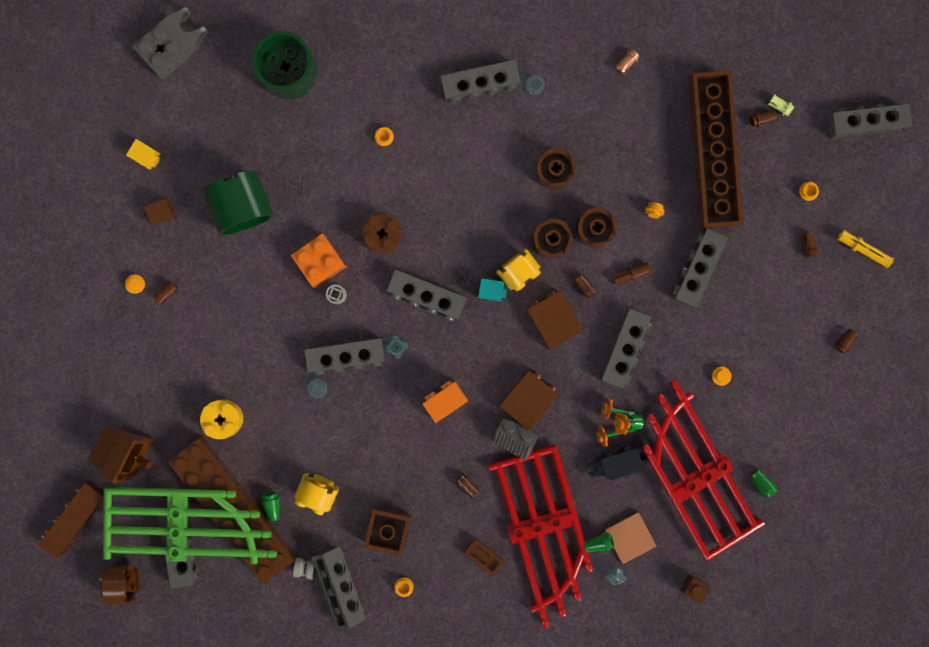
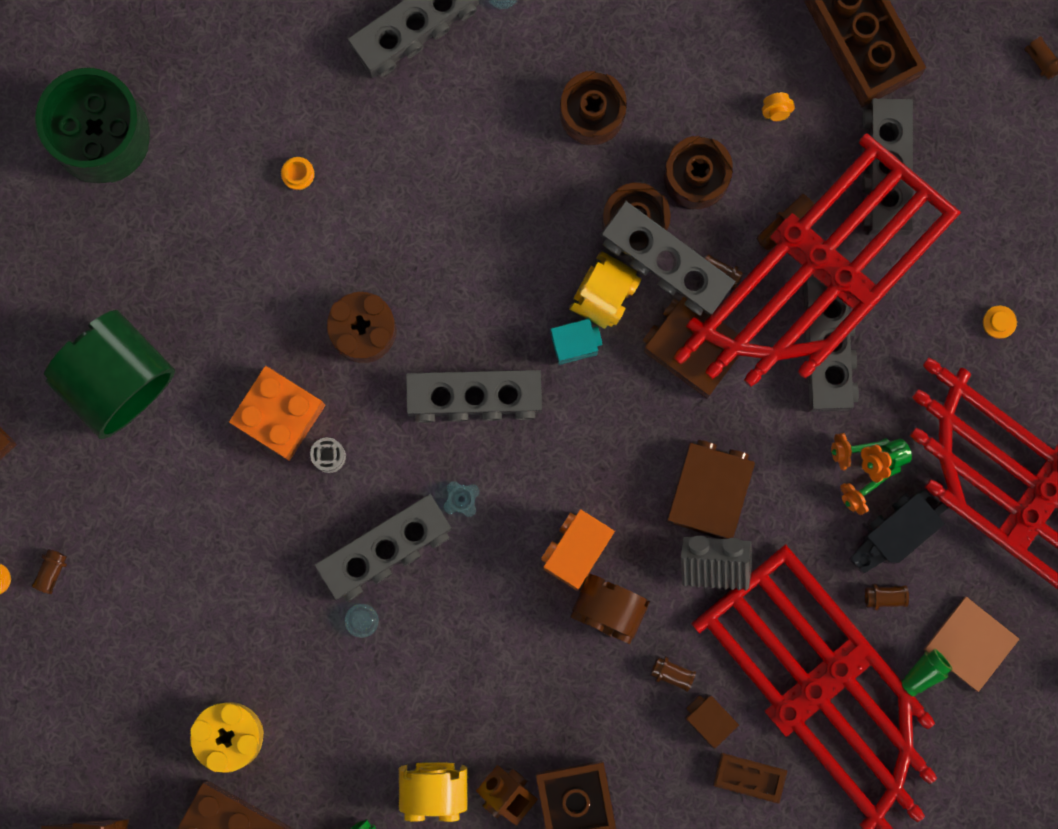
camera: 25 degrees left, 5 degrees down
(353, 511) = (500, 791): none -> reddish brown brick
(448, 439) = (610, 608): none -> reddish brown brick
(476, 518) = (710, 720): none -> reddish brown brick
(577, 292) = (713, 283): none -> dark grey brick
(596, 494) = (886, 596): none -> reddish brown pin
(616, 576) = (976, 716): clear light blue plate -> none
(642, 308) = (826, 265): none -> red piece

